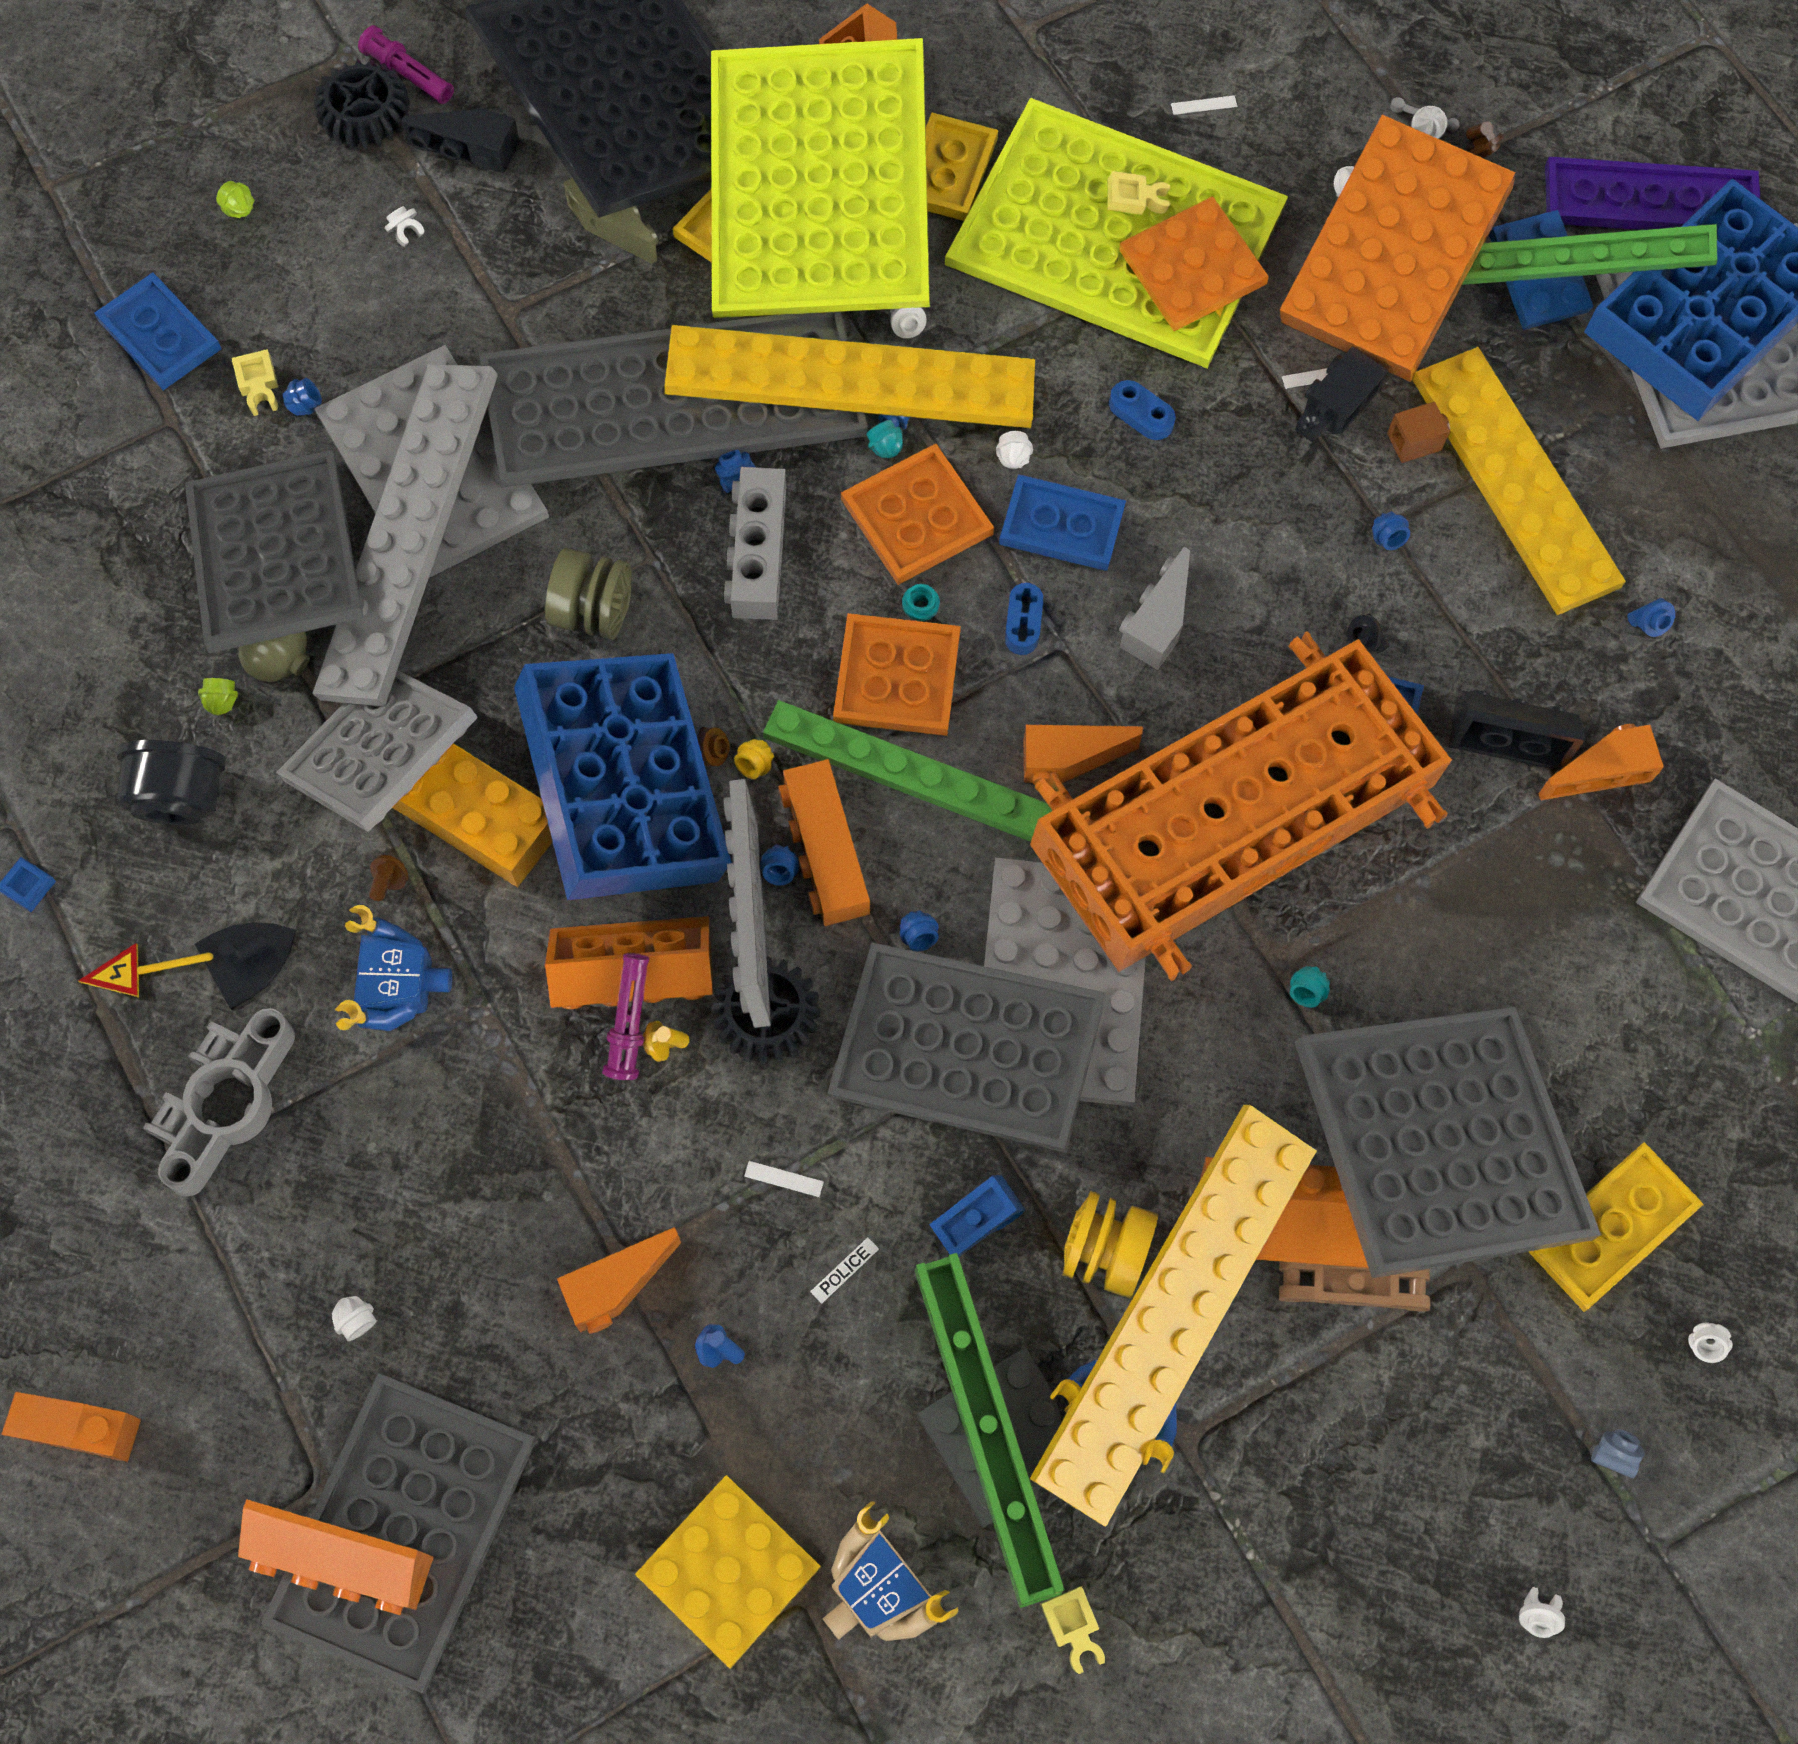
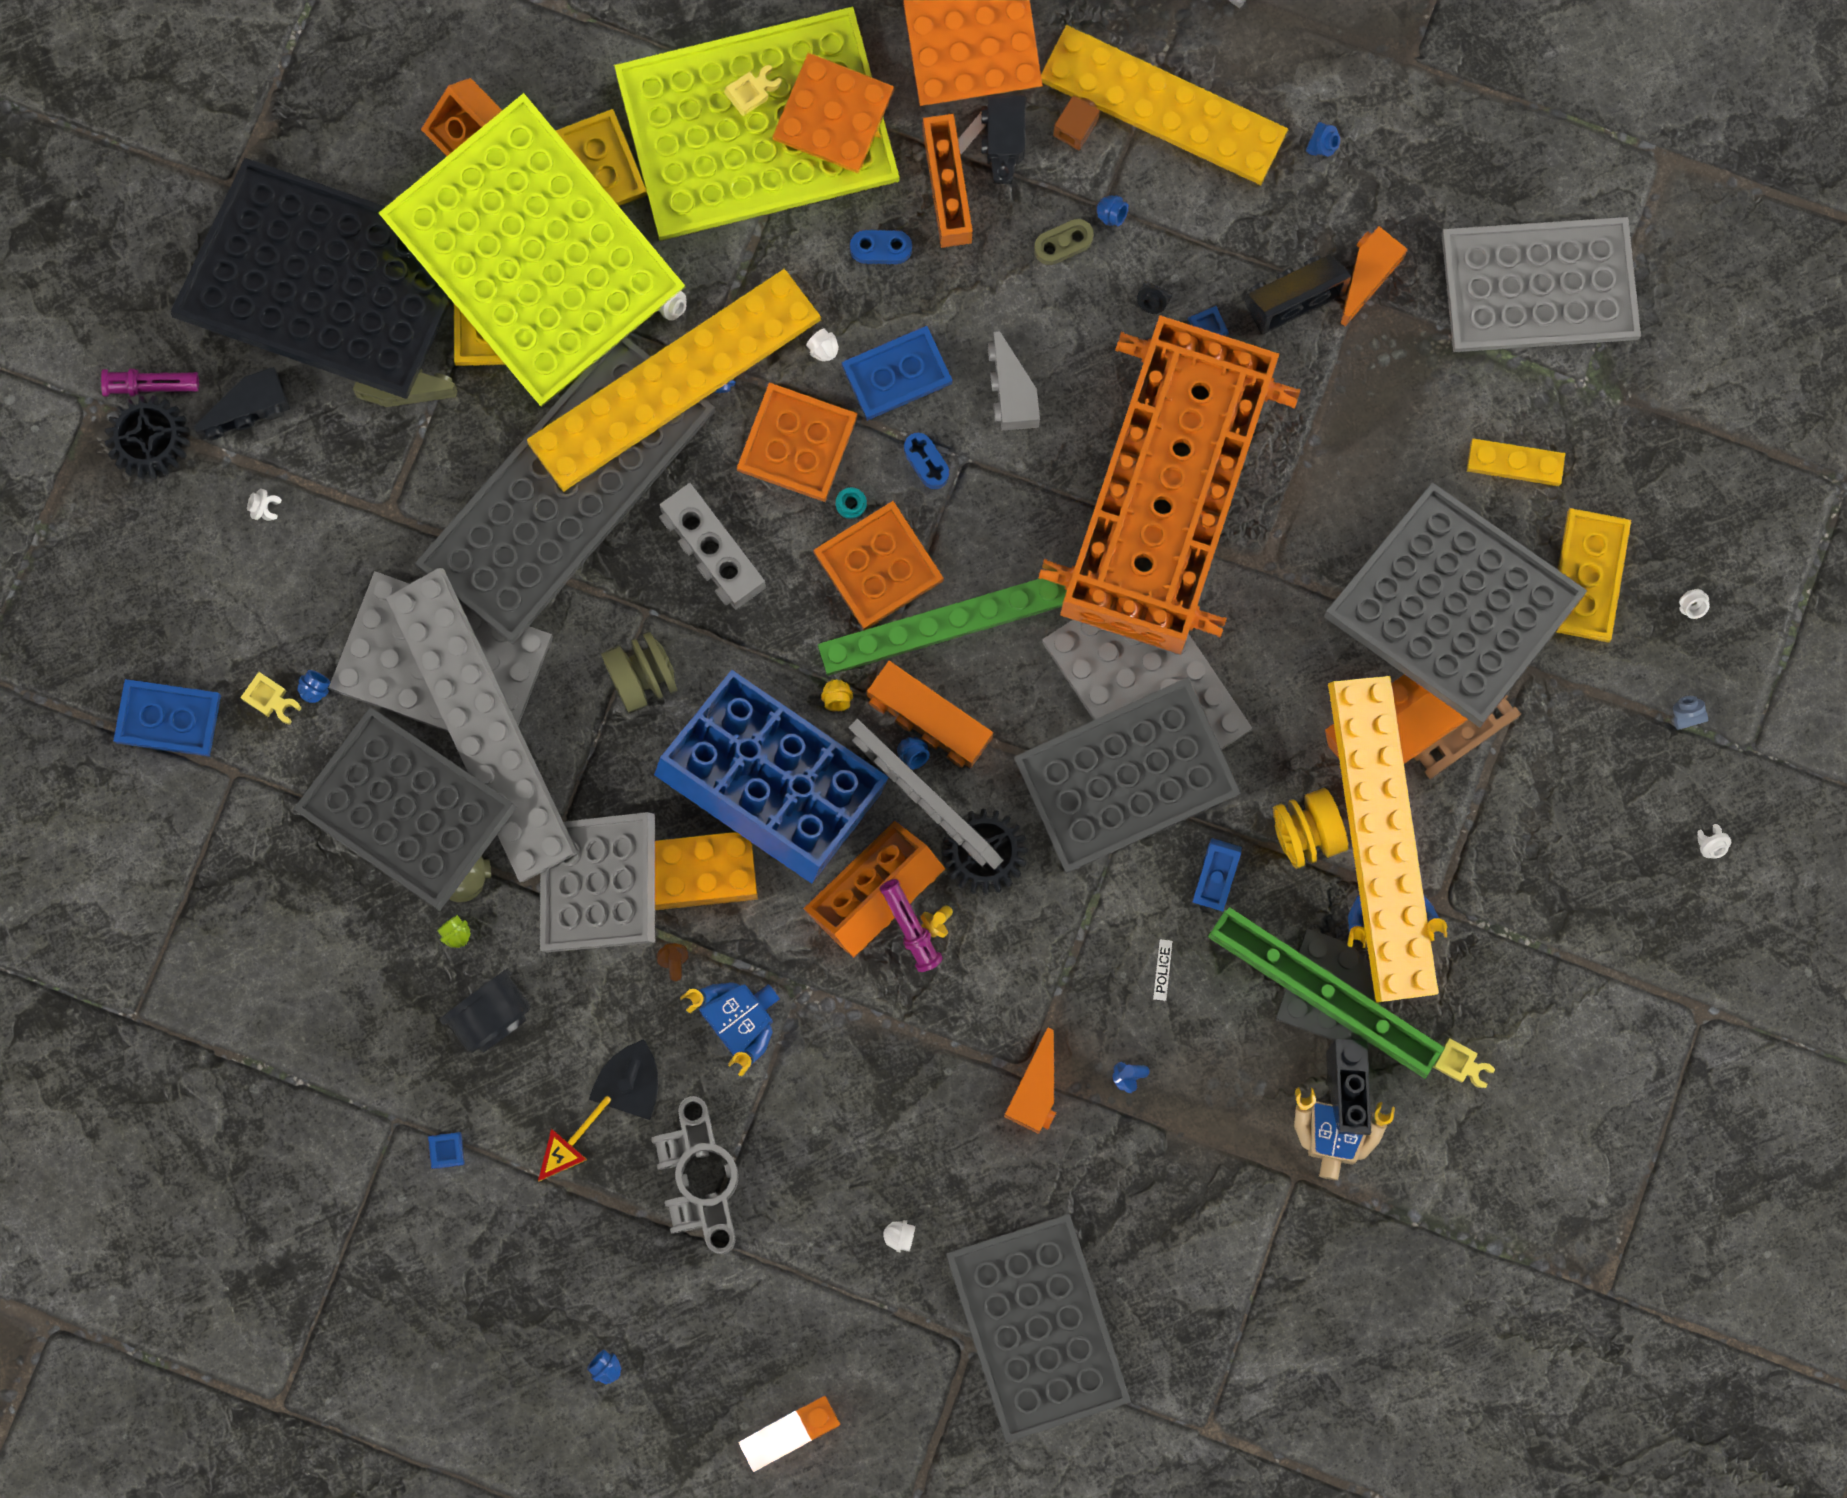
camera: 40 degrees left, 10 degrees up
(235, 199) = (128, 579): lime plate -> none
(332, 1556) = (1021, 1369): orange slope -> none
(713, 746) = (803, 706): reddish brown plate -> none
(728, 1571) = (1242, 1195): yellow plate -> none
(729, 467) = (648, 506): blue plate -> none
(784, 1179) = (1080, 945): white sticker -> none
(885, 439) = (732, 405): teal plate -> none
(919, 930) = (1034, 725): blue plate -> none
(929, 1548) = (1349, 1085): none -> black slope
(1074, 749) = (1027, 535): orange slope -> none
(1251, 392) = (947, 180): none -> orange brick
(1309, 986) = (1300, 568): teal plate -> none
(1319, 522) = (1061, 240): none -> olive plate
(1620, 1055) = (1515, 462): none -> yellow plate

